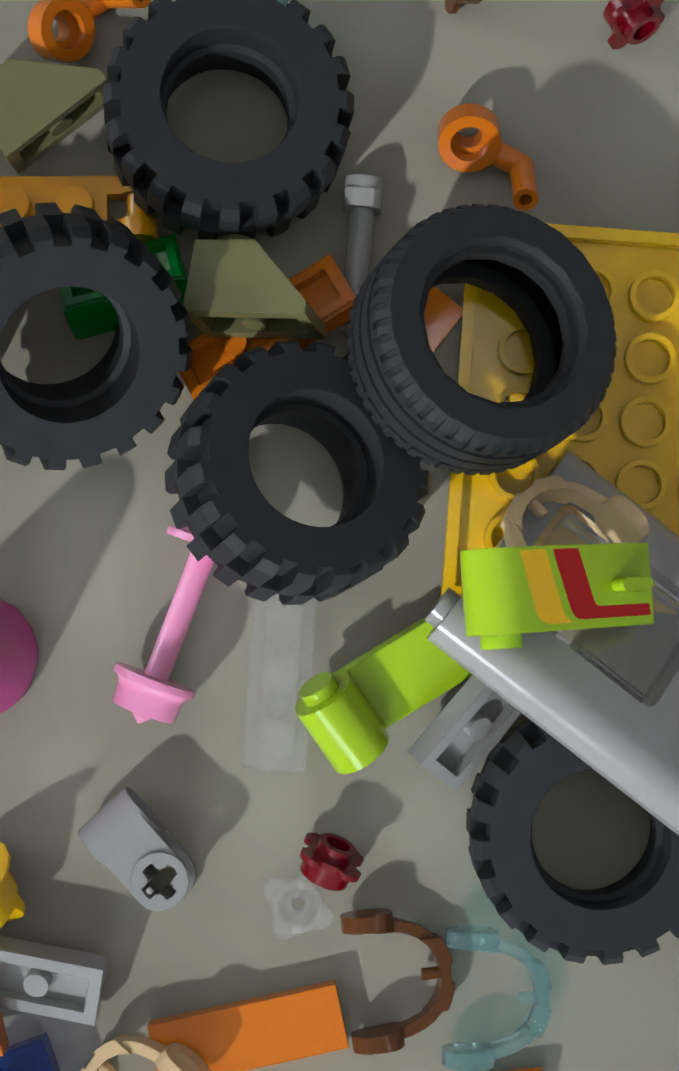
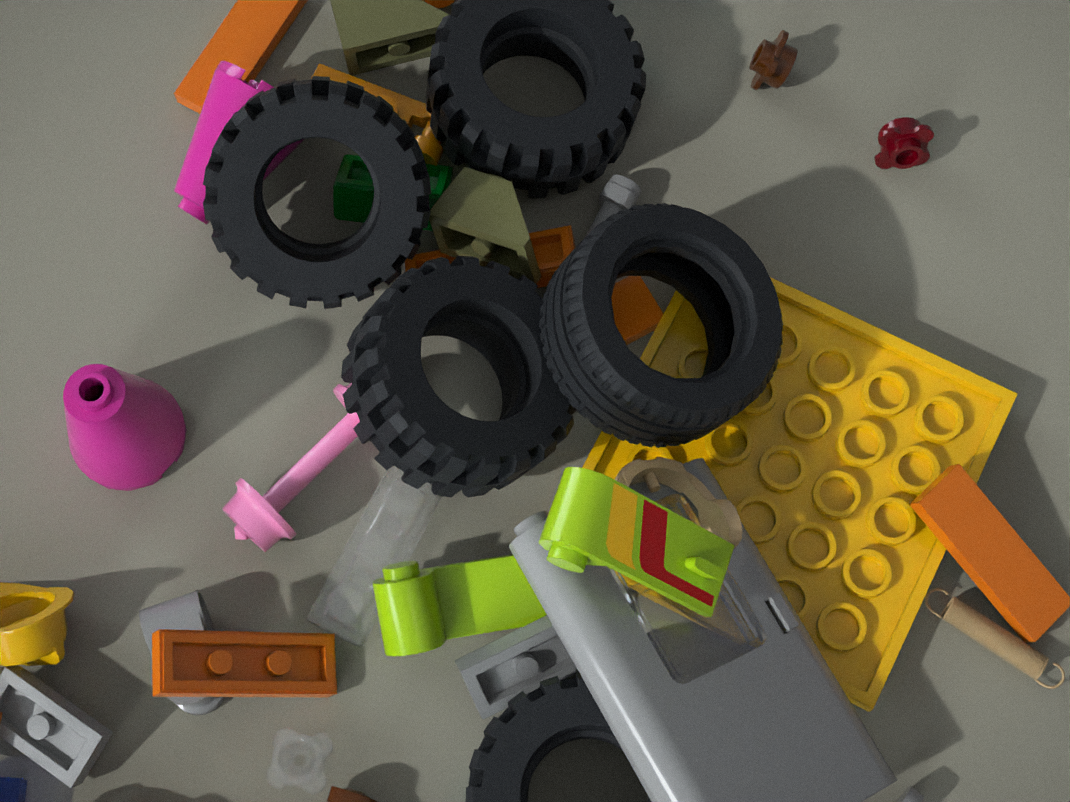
camera: 20 degrees right, 15 degrees down
(206, 846) = (243, 664): none -> orange tile
(330, 861) = (344, 731): dark red plate -> none
(486, 149) = (735, 200): orange plate -> none

